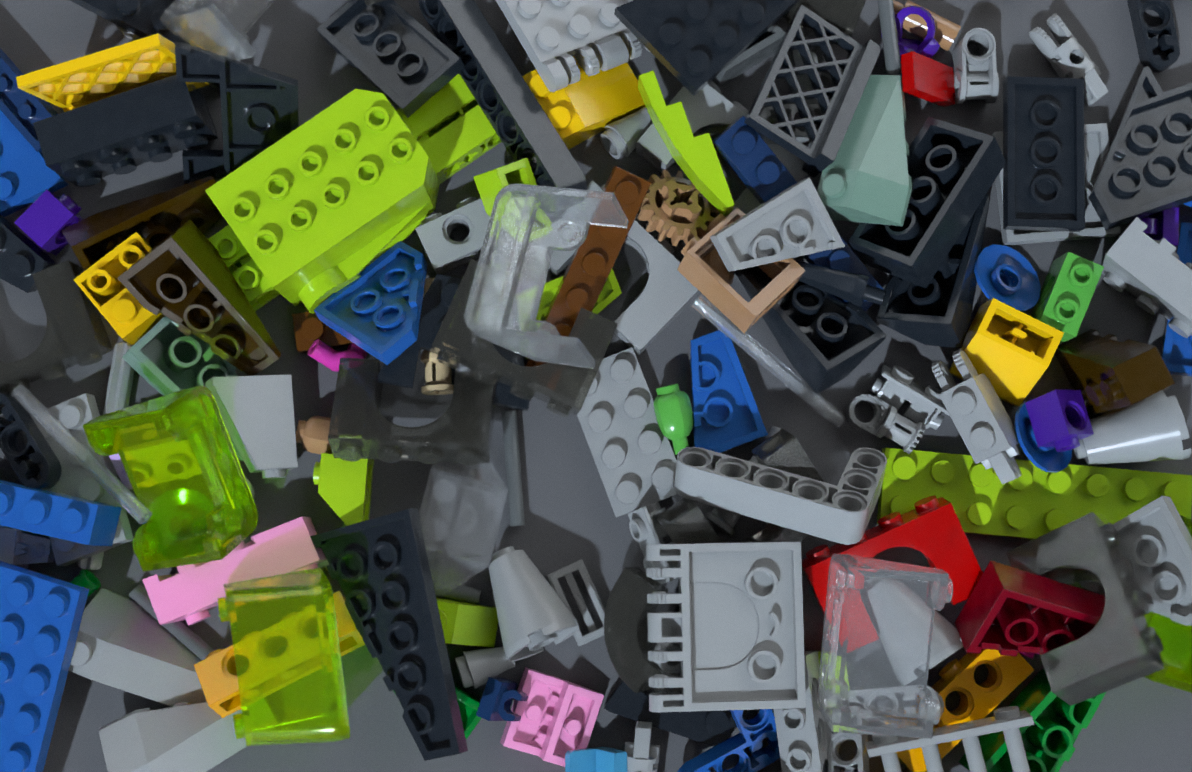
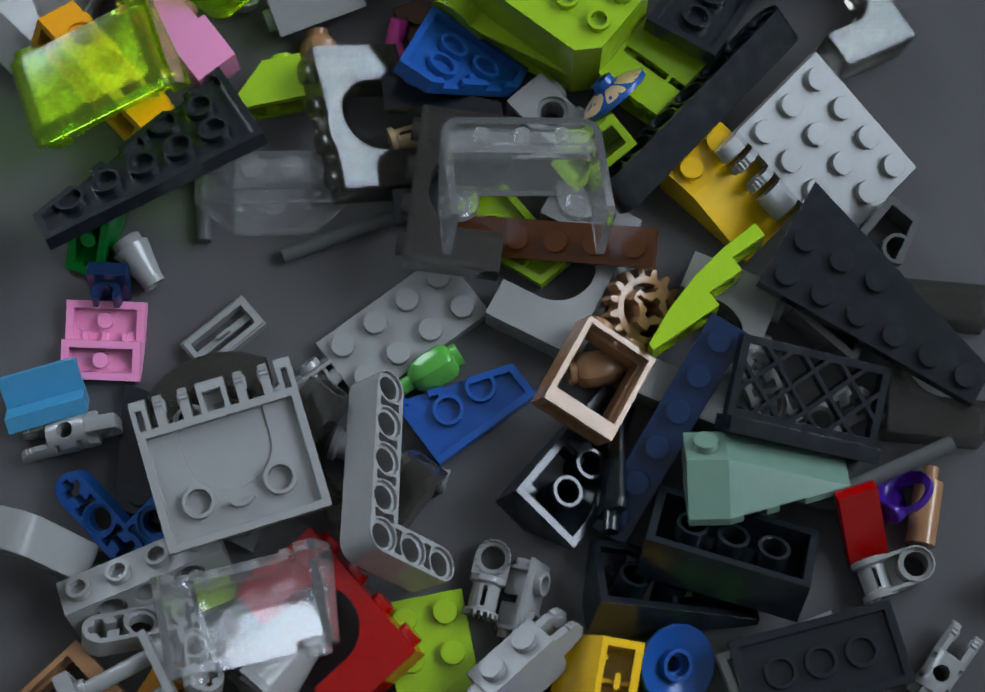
camera: 75 degrees right, 10 degrees down
(467, 165) = (611, 91): none -> dish
(468, 623) = (175, 228): lime slope -> none
(527, 606) = (203, 281): light grey cone -> none
(622, 135) = (701, 239): light grey cone -> none
(768, 361) = (511, 451): clear piece -> none
(778, 230) = (642, 399): light grey wing -> none

